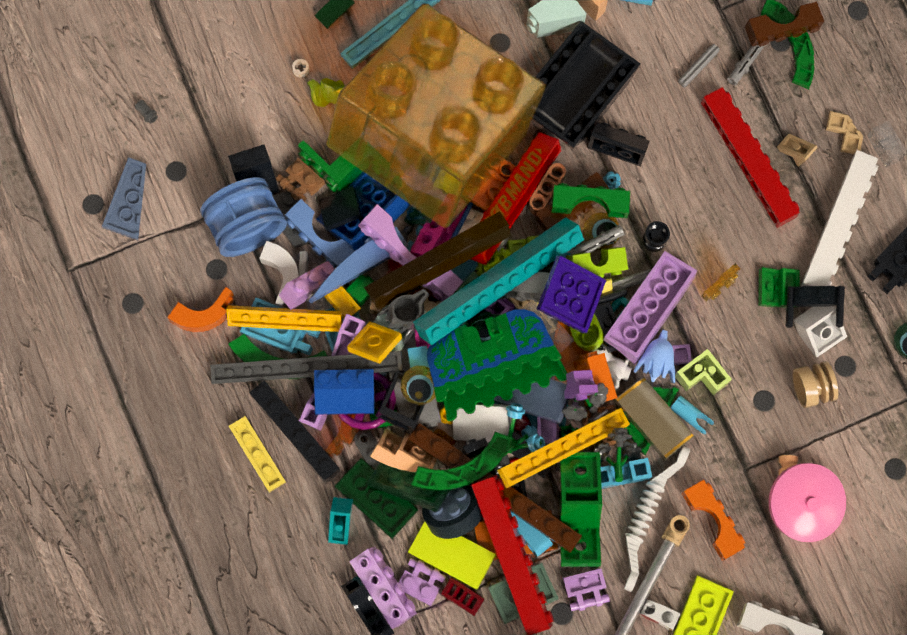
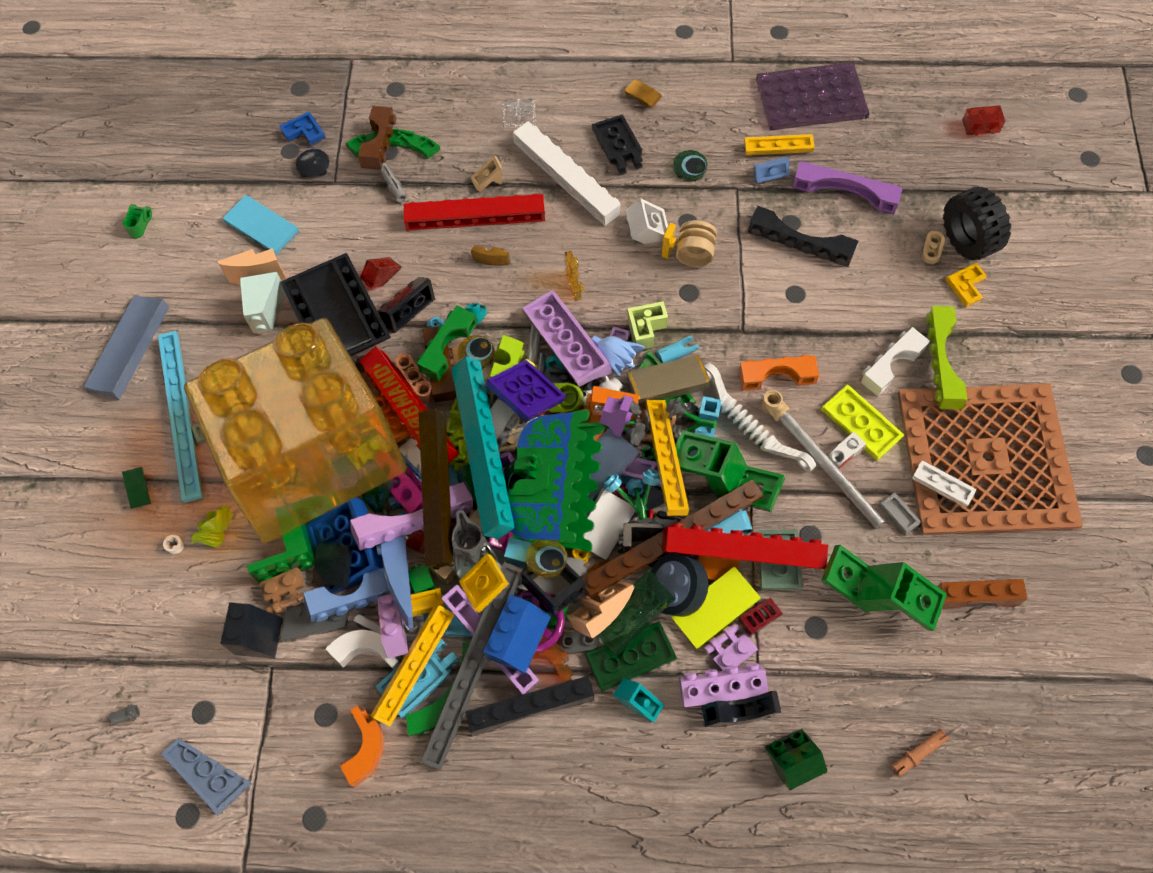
camera: 60 degrees left, 10 degrees down
(243, 217) = (289, 657): medium blue wheel -> none
(257, 454) = (534, 754): light yellow plate -> none
(467, 473) = (650, 553): green tile -> none
(586, 583) = (792, 502): lavender plate -> none
(599, 241) = (485, 350): light grey pin -> none
(639, 209) = (479, 310): none -> teal plate
(641, 102) = (379, 271): none -> clear red slope
(656, 236) = (505, 309): black wheel -> none
(700, 63) = (373, 217): light grey axle -> none
(710, 199) = (495, 256): none -> pearl gold slope
(774, 284) = (597, 239): green slope -> none
(787, 461) = (756, 296): light nougat wheel -> none
(805, 356) = (669, 240): none -> yellow plate
(807, 502) = (794, 294): bright pink dish -> none
(815, 297) = (622, 210): black plate -> none
(843, 124) = (484, 138): tan tile -> none
(883, 526) = (835, 249): none -> black arch

